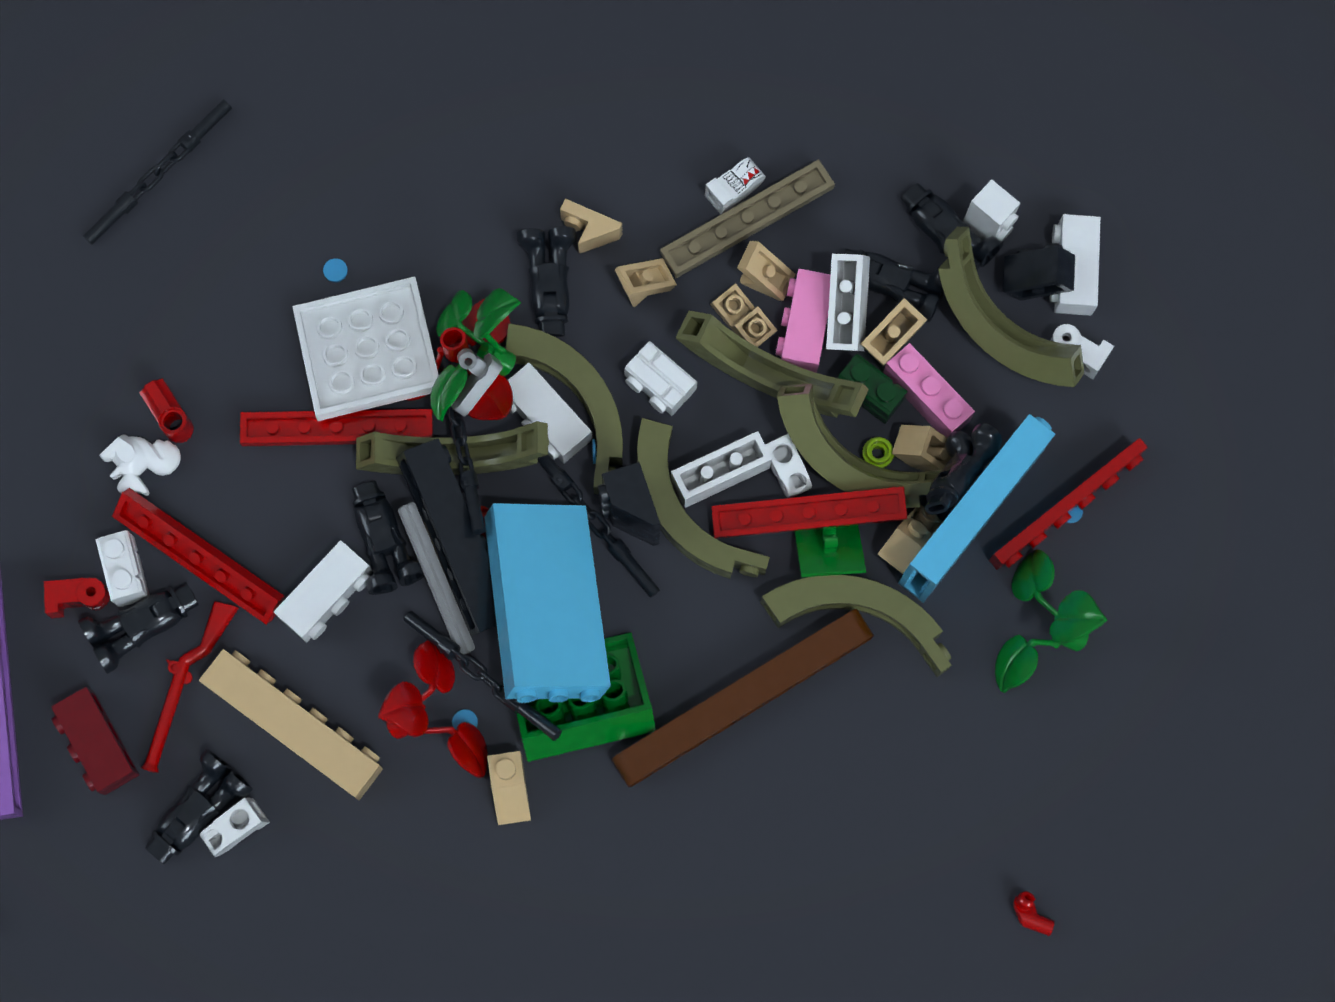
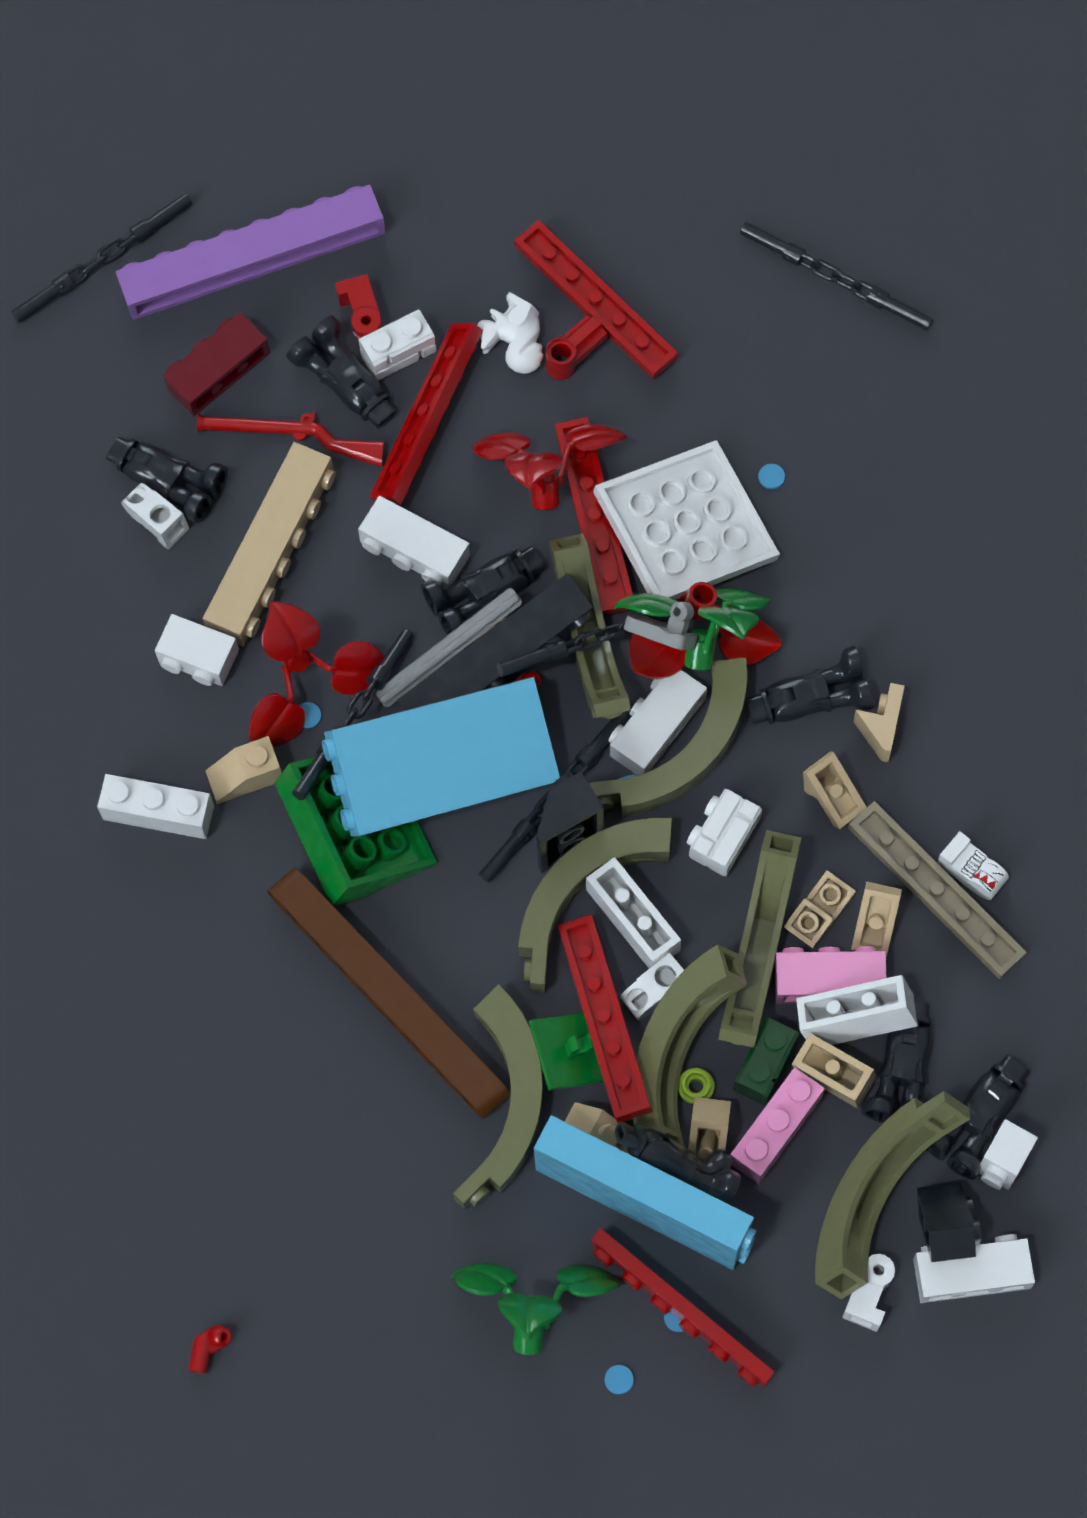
camera: 85 degrees right, 5 degrees down
(122, 383) = (596, 299): none -> red plate
(296, 460) = (538, 469): none -> red plant
(382, 810) = (196, 651): none -> white brick
(526, 874) = (155, 806): none -> white brick
(1114, 570) = (619, 1379): none -> dark azure piece

